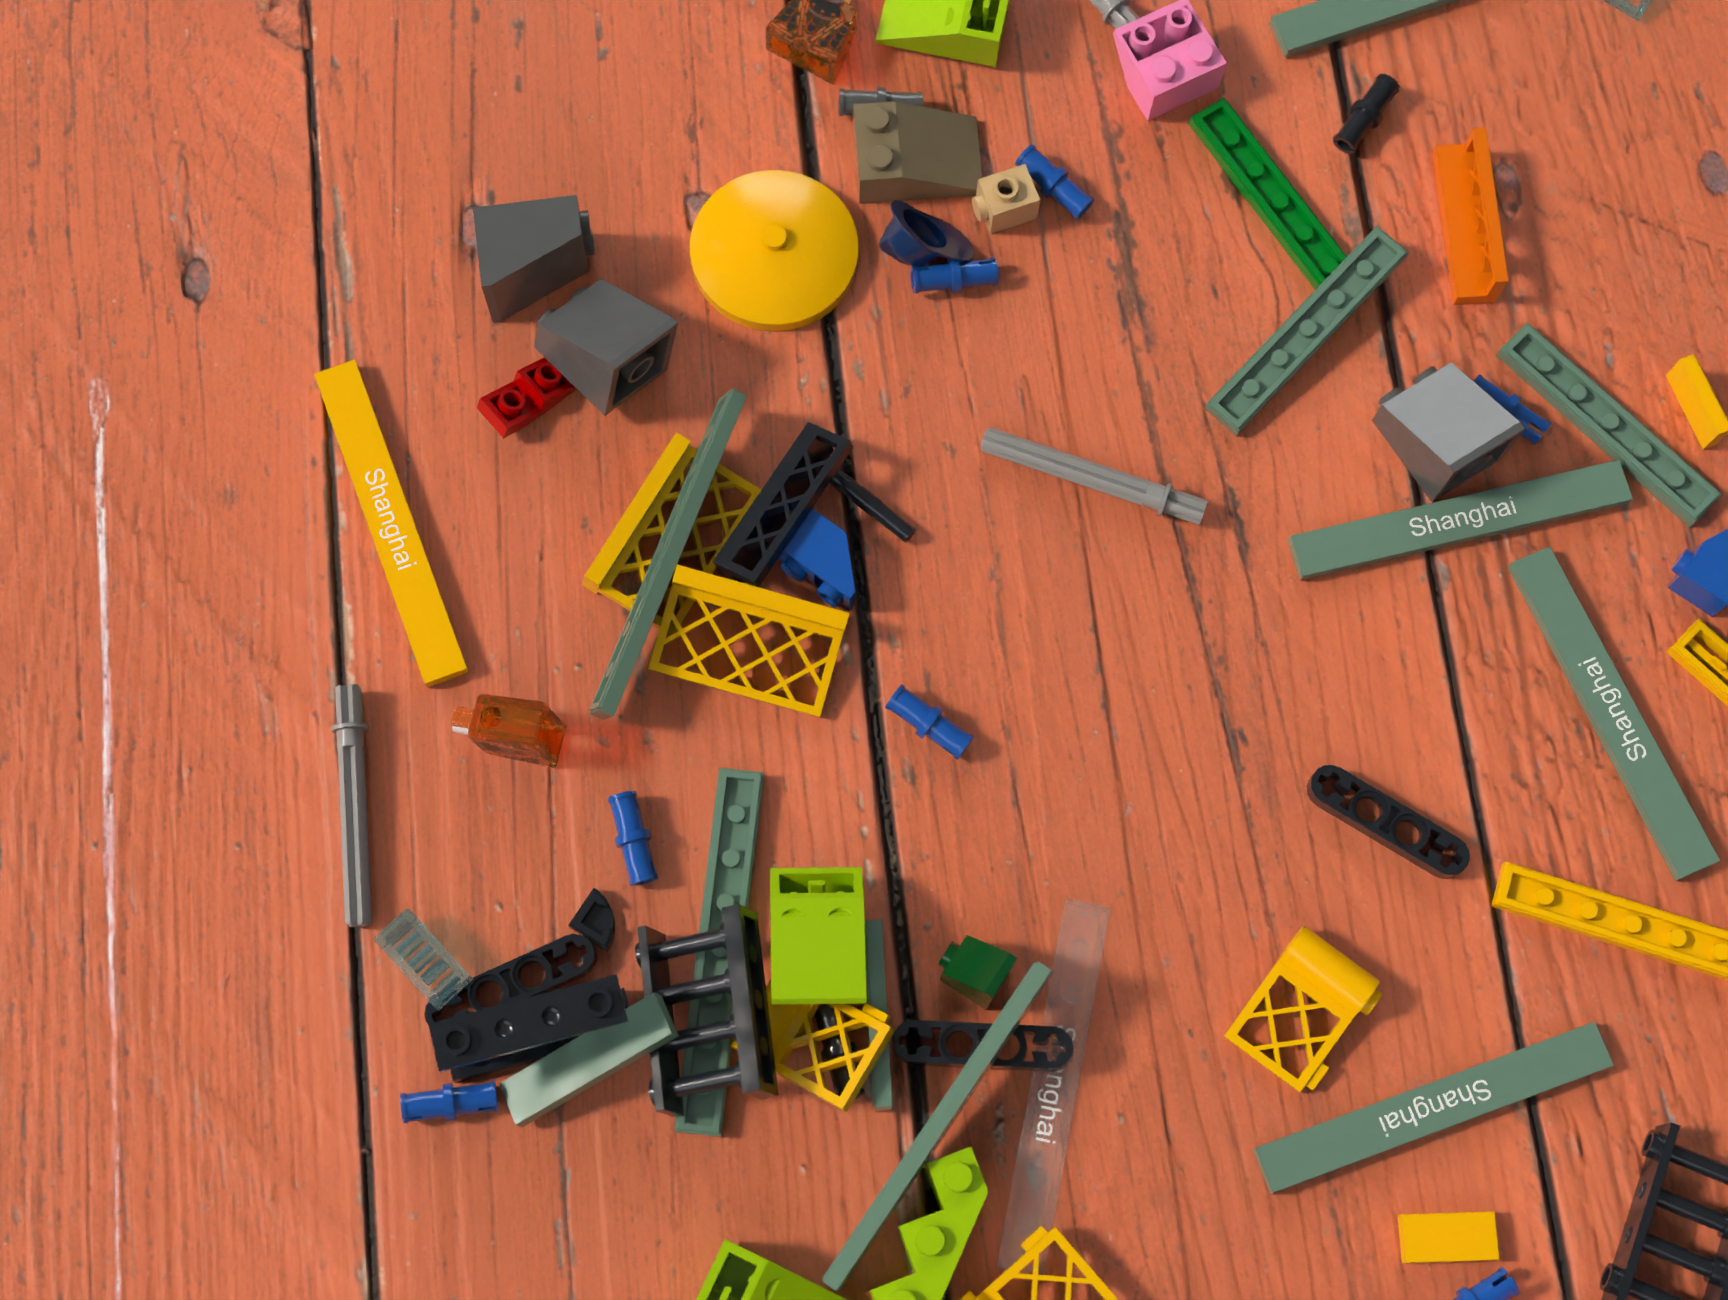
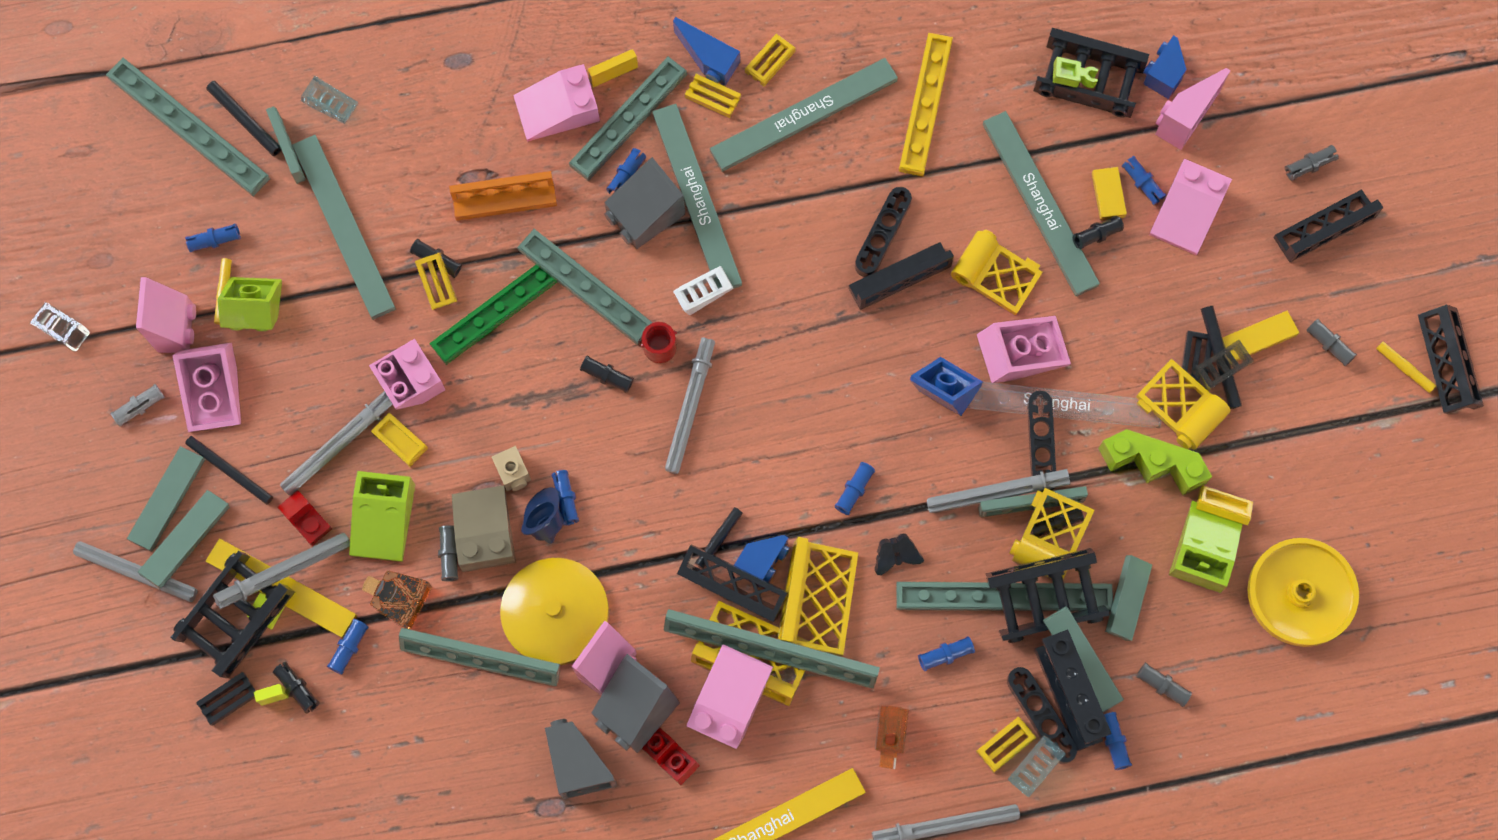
camera: 90 degrees left, 0 degrees up
(491, 952) = (988, 758): none -> yellow tile
(533, 1201) = (1164, 684): none -> dark grey pin
(595, 920) = (996, 671): black tile -> none
(596, 480) = (729, 696): none -> bright pink slope
(685, 289) = (602, 658): none -> bright pink slope
(691, 1161) = (1128, 598): none -> sand green tile
(711, 135) = (479, 657): none -> sand green tile
(813, 776) = (896, 551): none -> black animal
(817, 936) = (997, 535): lime slope -> none
(900, 960) = (998, 491): none -> light grey axle
(937, 1126) = (1092, 459): sand green tile -> none
(976, 969) = (1001, 446): dark green slope -> none
(1055, 182) = (496, 441): blue pin -> none
(1069, 49) = (399, 439): none -> yellow tile
(1095, 889) = (947, 384): none -> blue slope
(1155, 352) = (606, 374): none -> black pin
(1157, 1038) = (1022, 348): none -> bright pink slope
(1203, 433) = (659, 342): none -> red piece
(1279, 485) = (690, 287): none -> white slope
(1304, 841) = (901, 275): none -> black fence
(1329, 114) = (419, 263): none -> yellow tile
(1370, 1202) = (1098, 232): none -> black pin
(1634, 314) = (557, 104): none -> bright pink slope
(1663, 533) = (690, 95): none -> yellow tile
(1687, 1186) = (1071, 74): none -> lime plate

